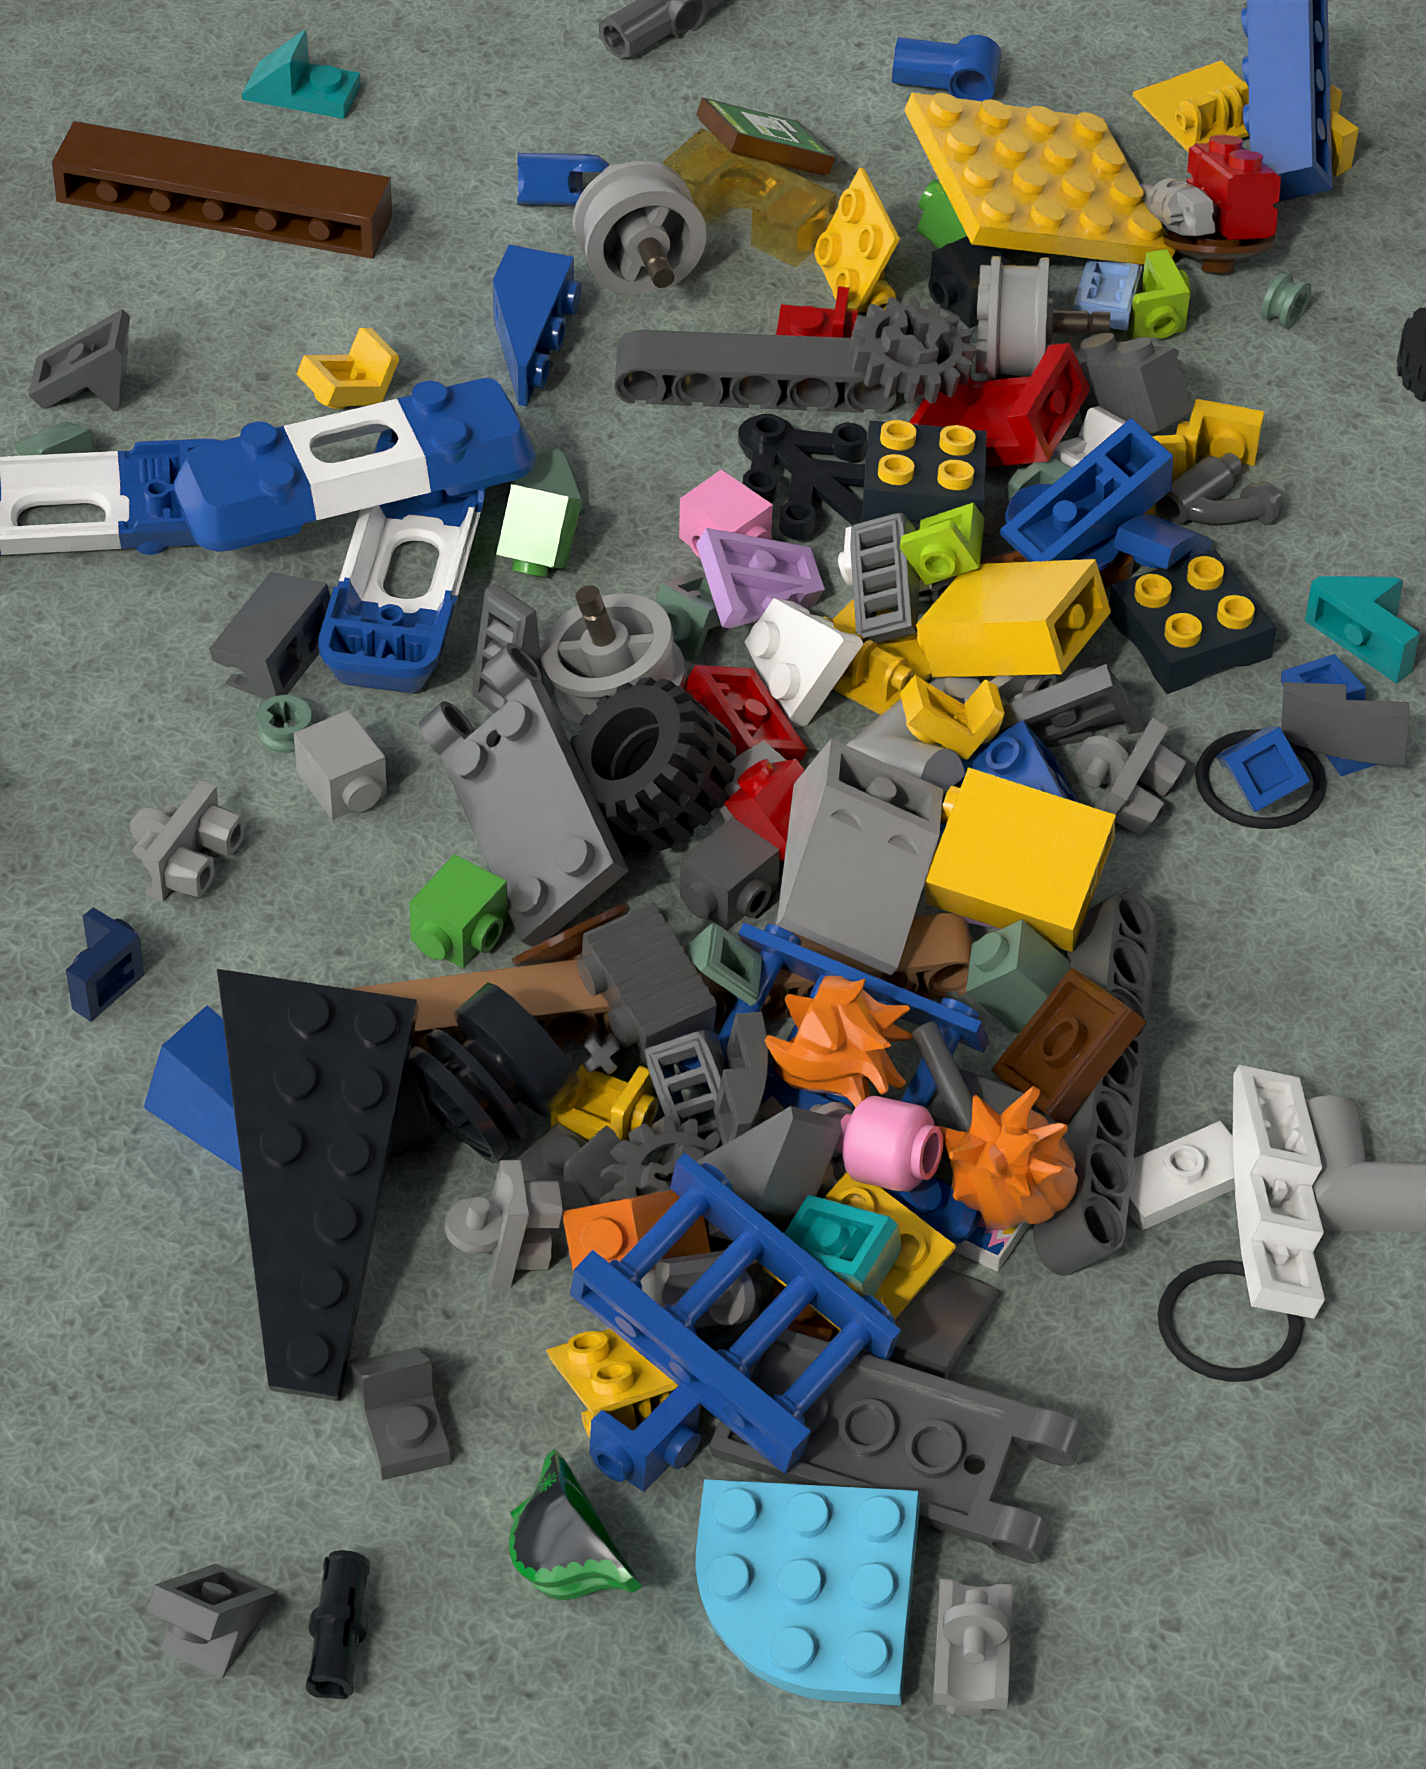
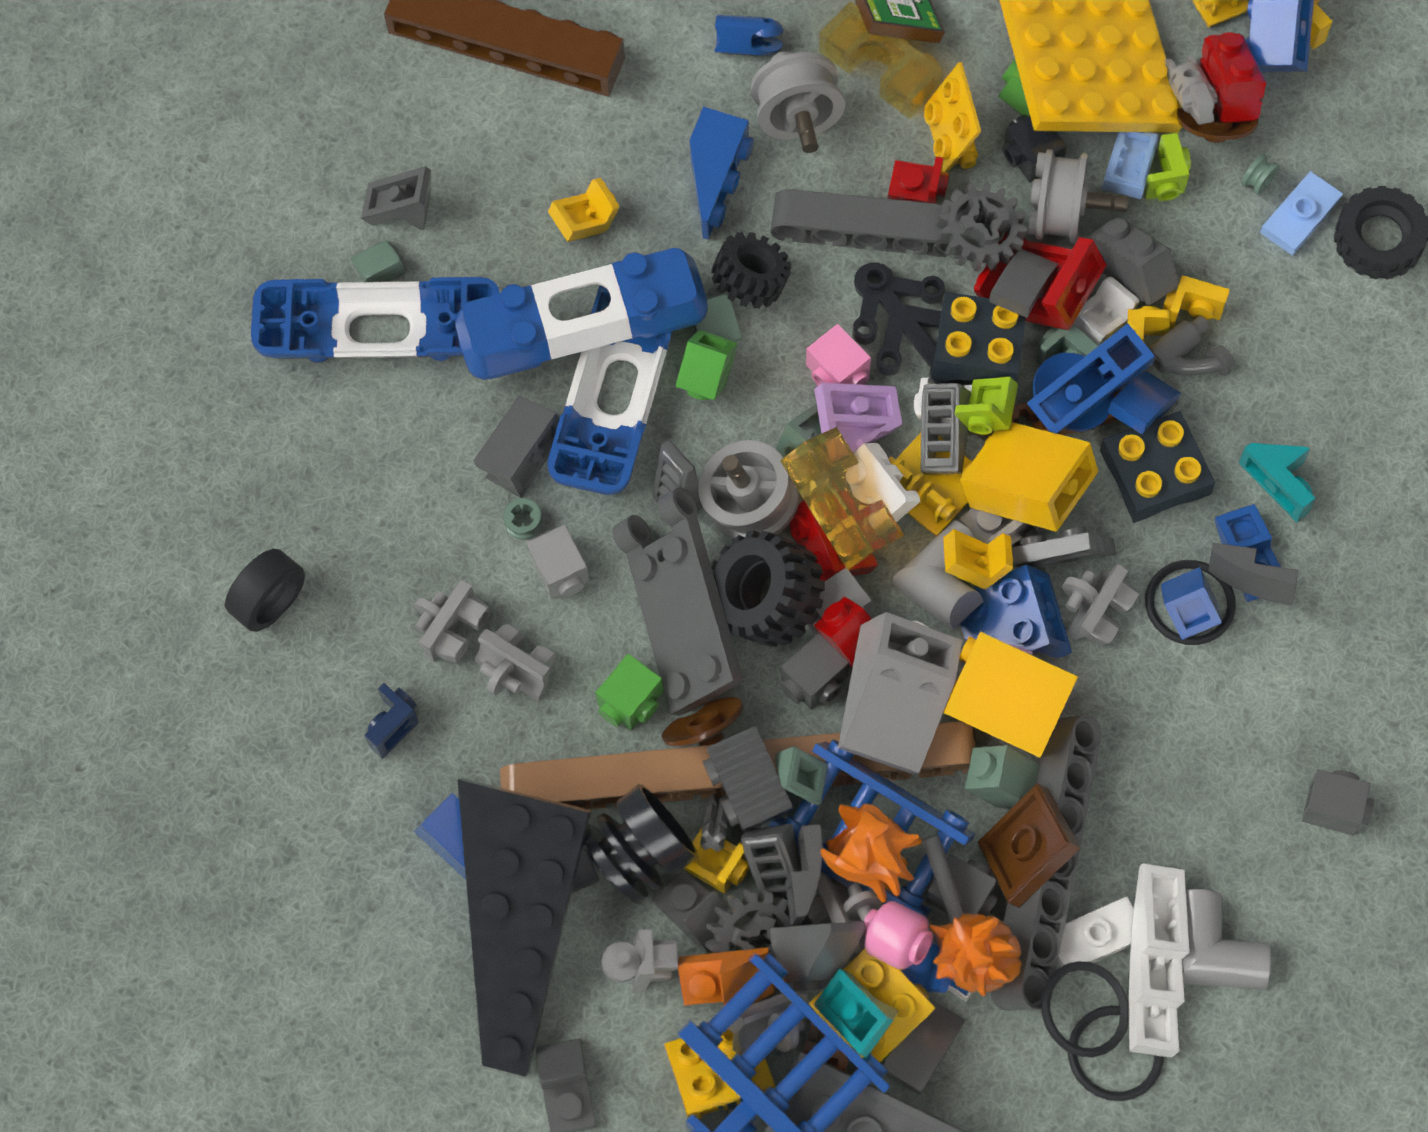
camera: 10 degrees right, 20 degrees up
(282, 888) = (512, 667): none -> light grey hips
(592, 421) = (743, 283): none -> black tyre
(773, 687) = (851, 526): none -> clear yellow arch
(974, 407) = (1023, 282): none -> dark grey slope
(1145, 1286) = (1051, 1027): none -> black tyre
(1348, 344) = (1301, 213): none -> light blue plate

